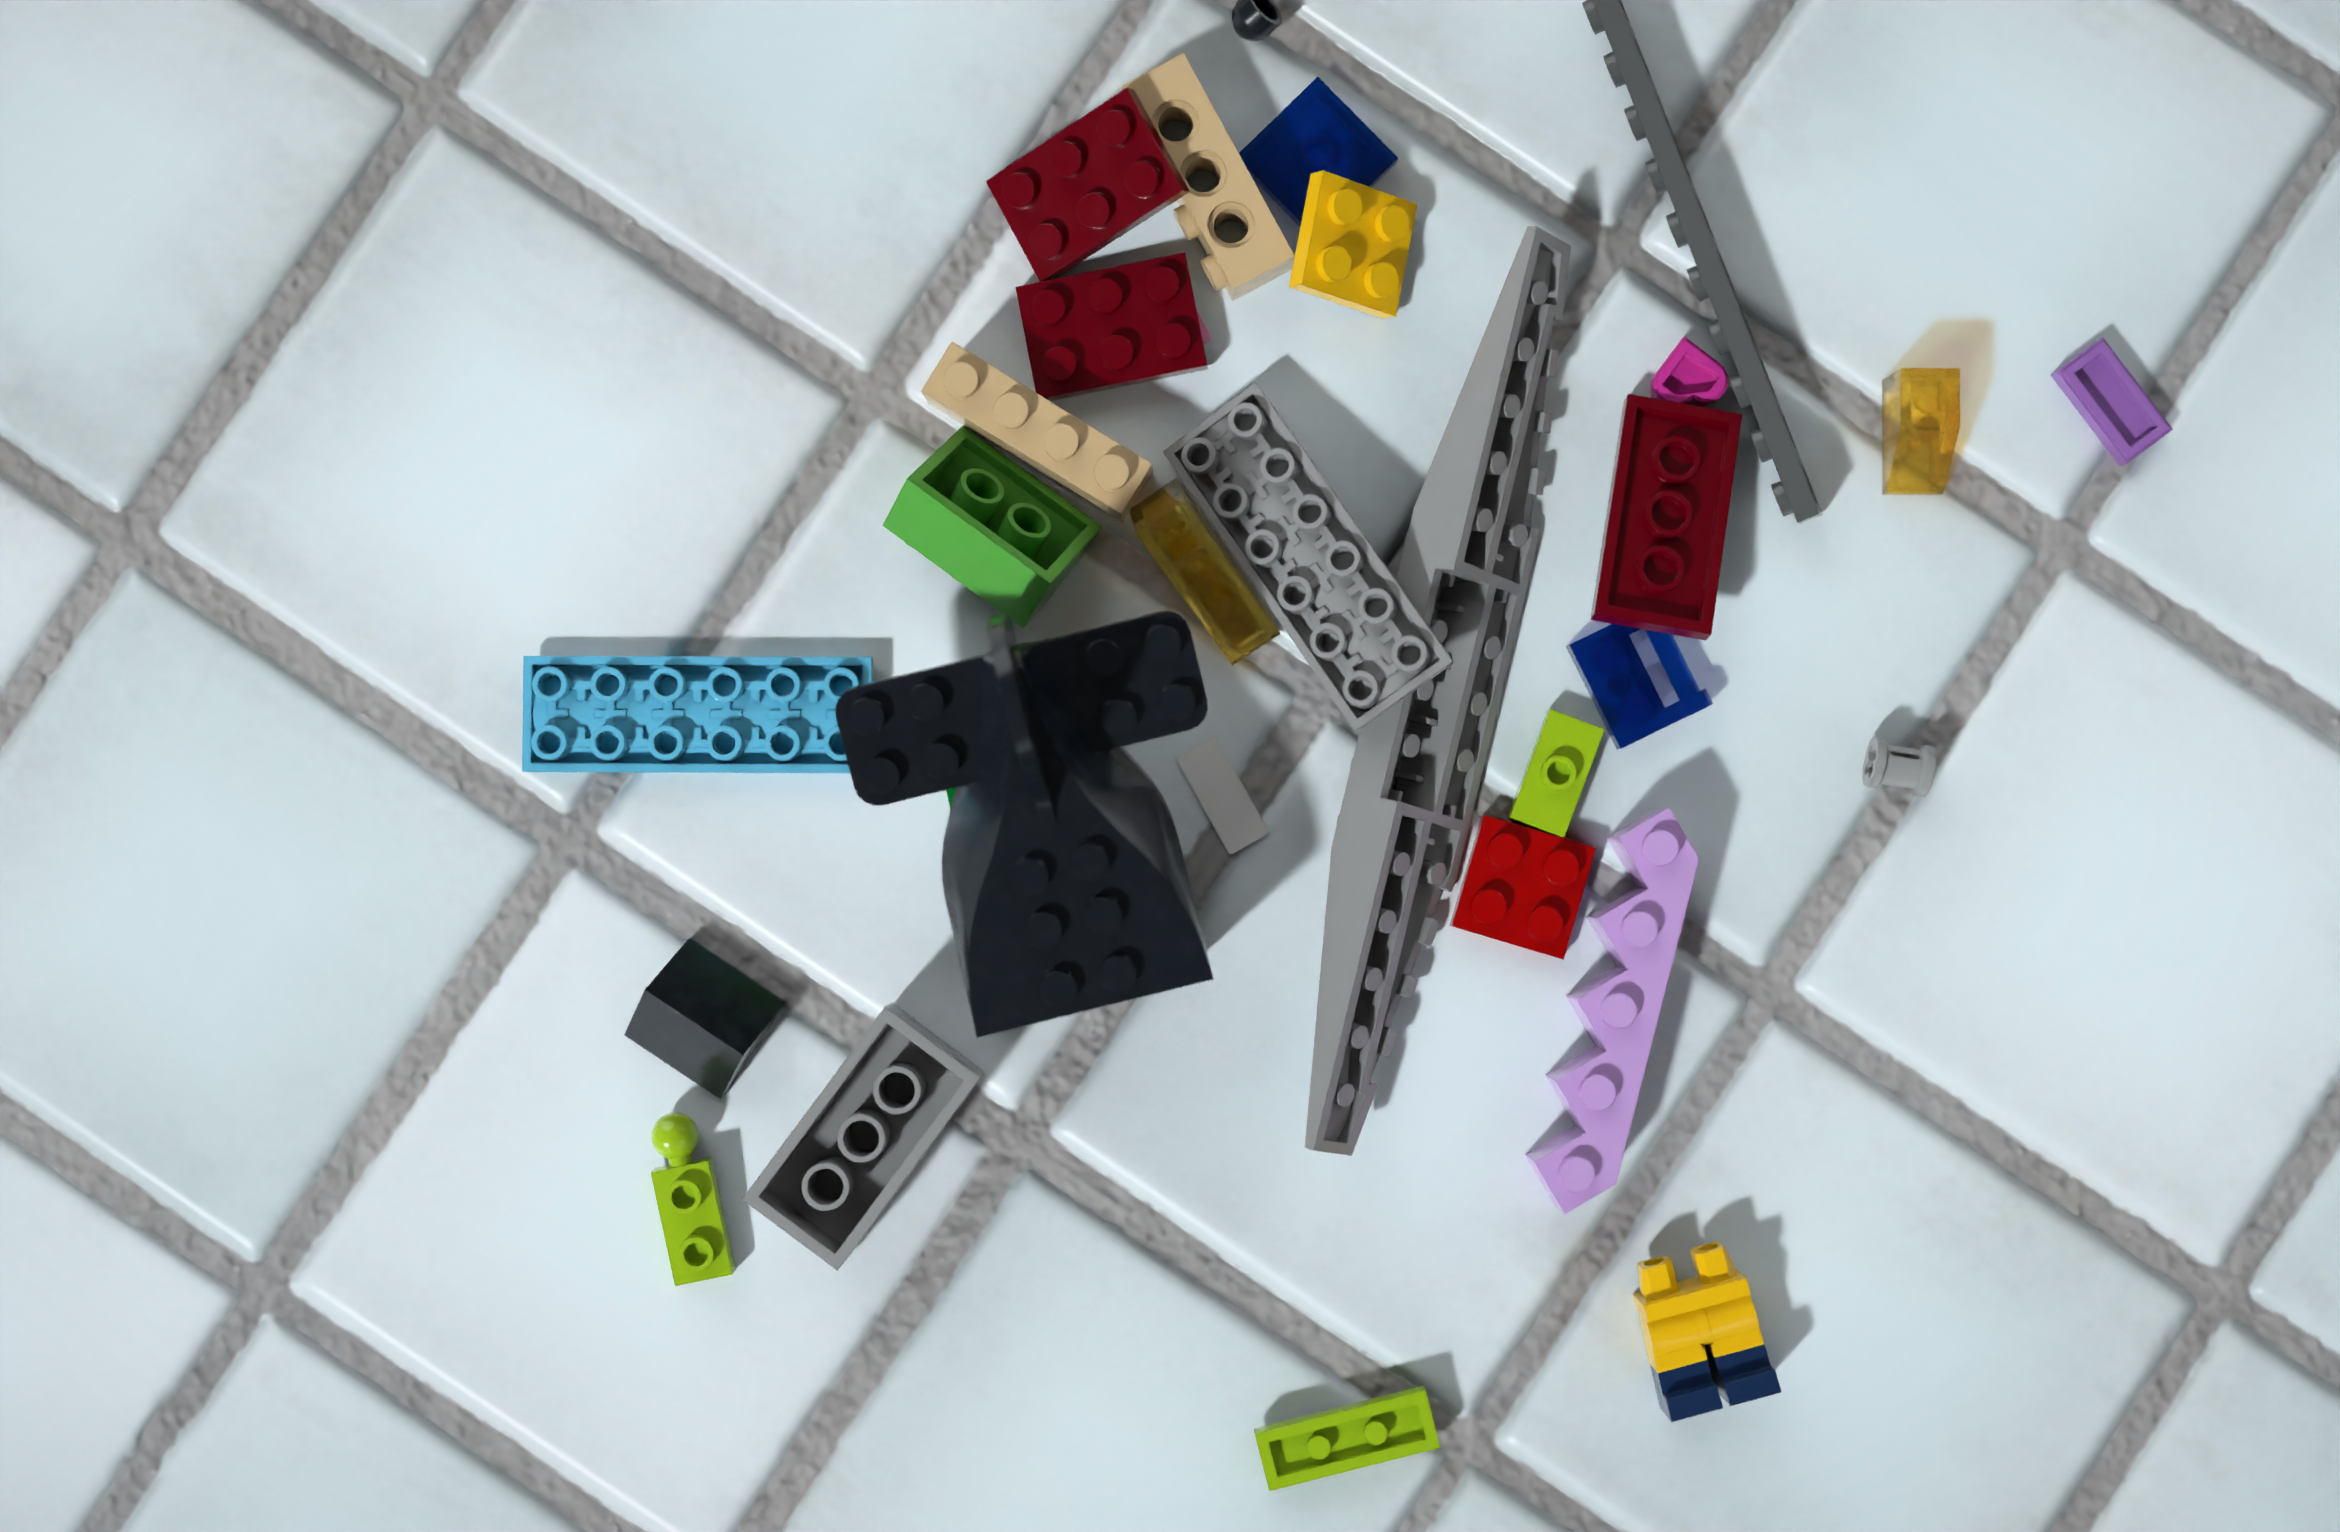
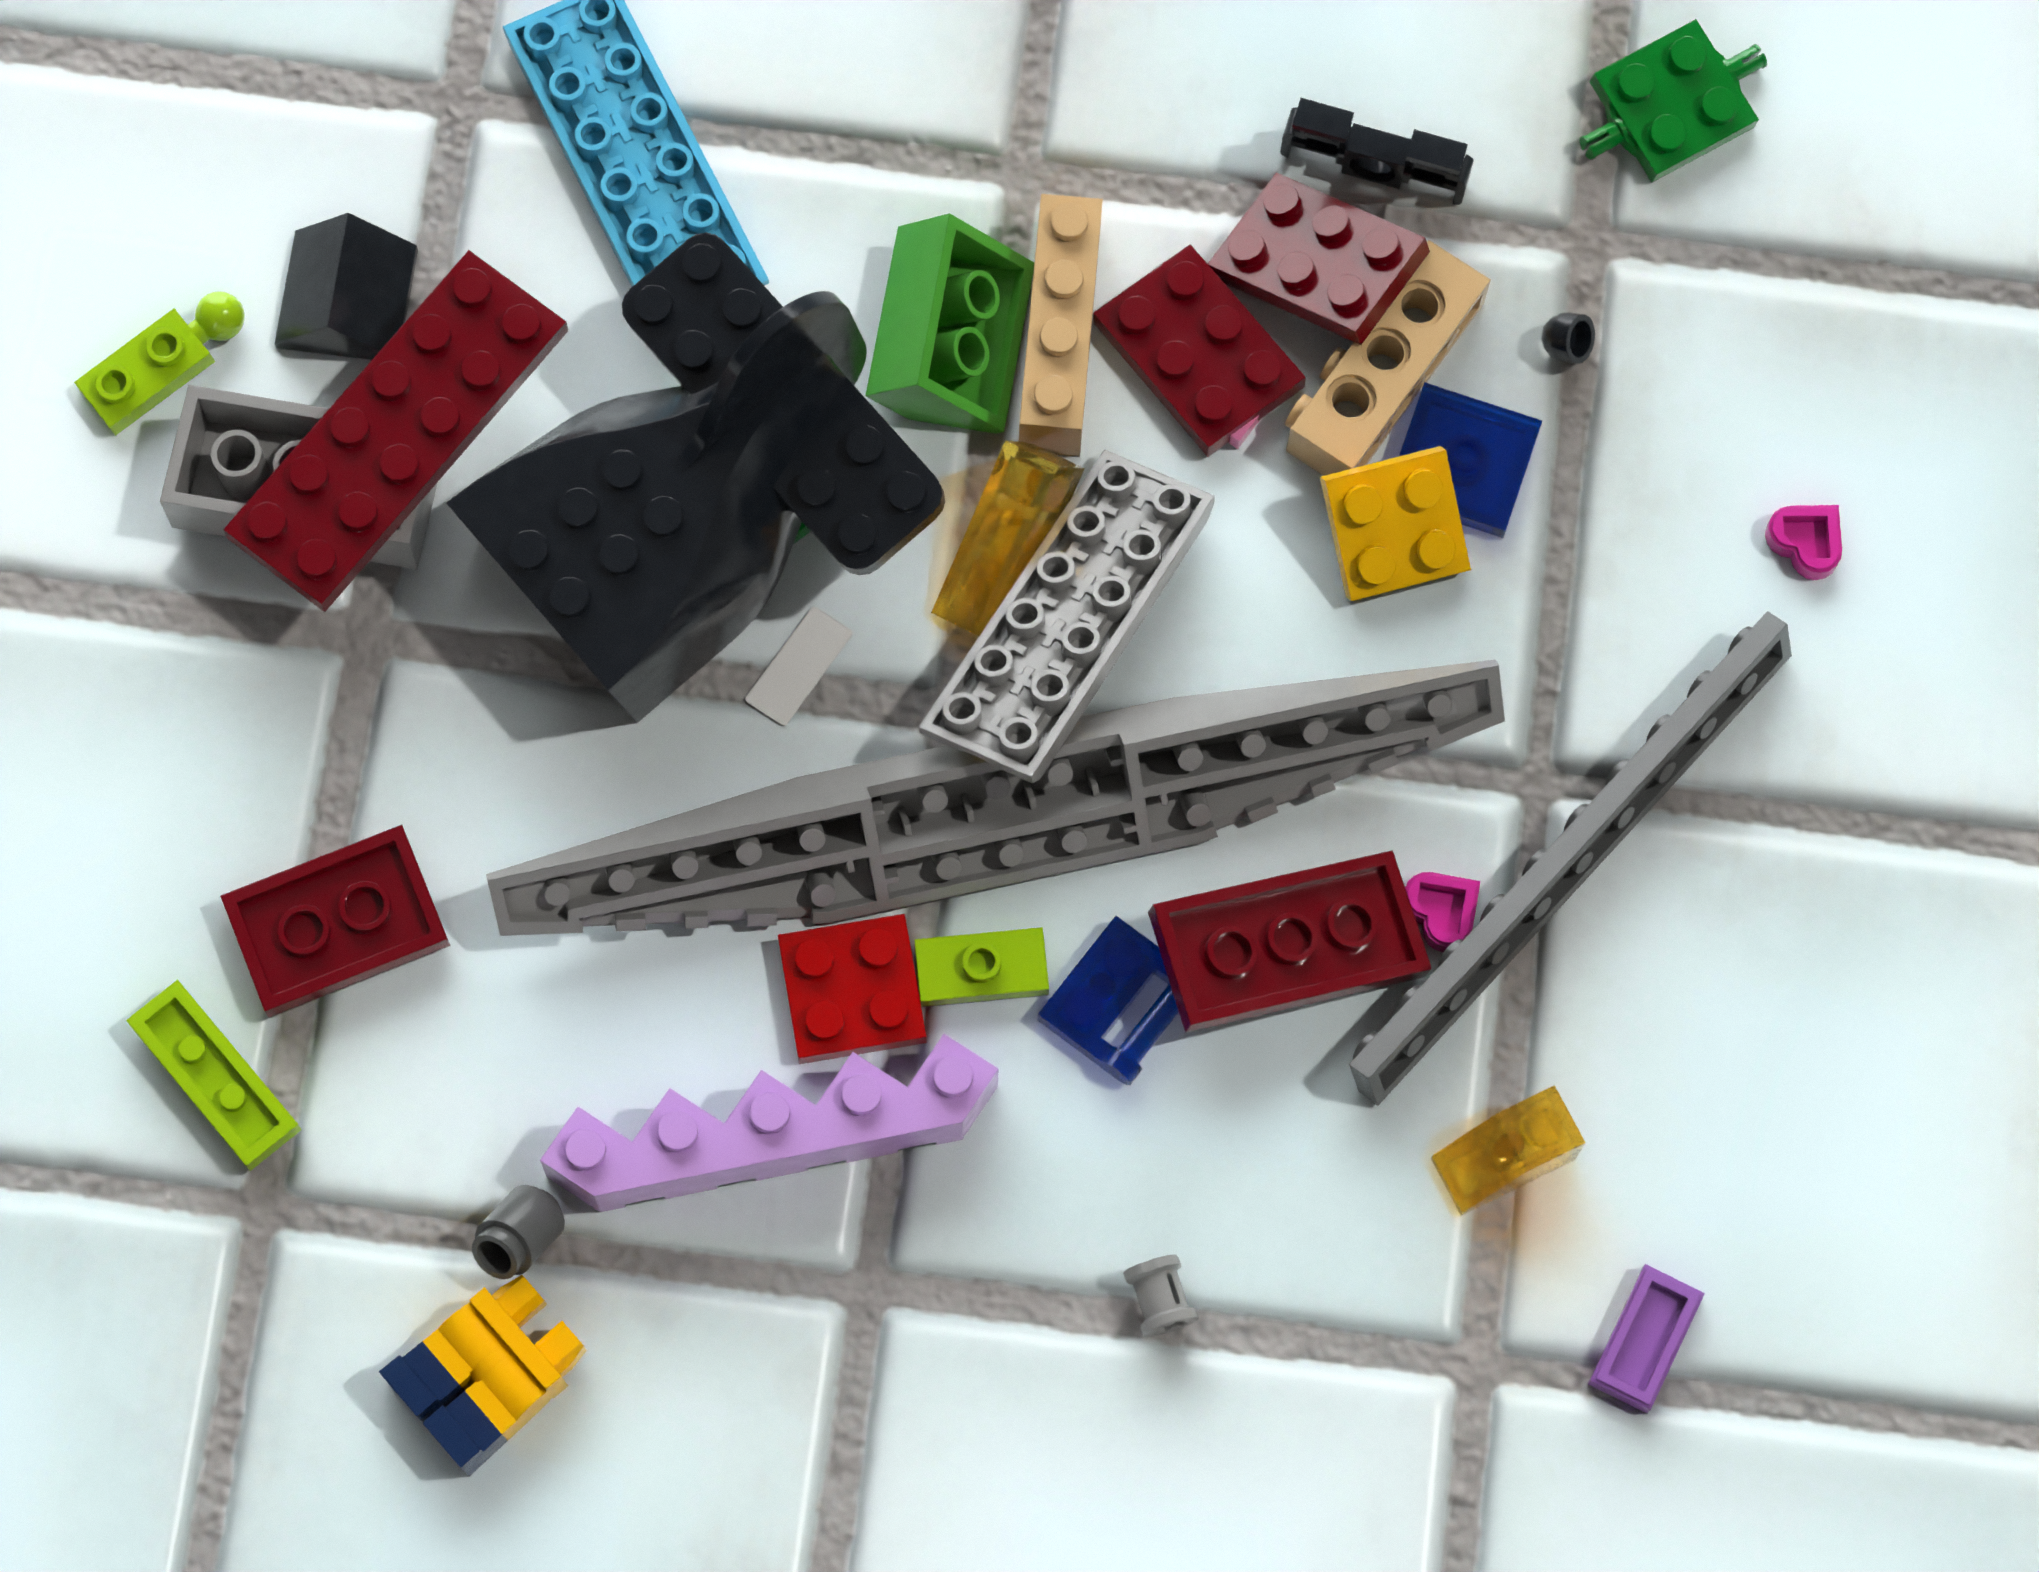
camera: 60 degrees right, 15 degrees down
(874, 1042) = (396, 430): none -> dark red plate
(1014, 86) = (1376, 153): none -> black piece
(1263, 1281) = (334, 921): none -> dark red plate
(1604, 1255) = (517, 1232): none -> dark grey brick

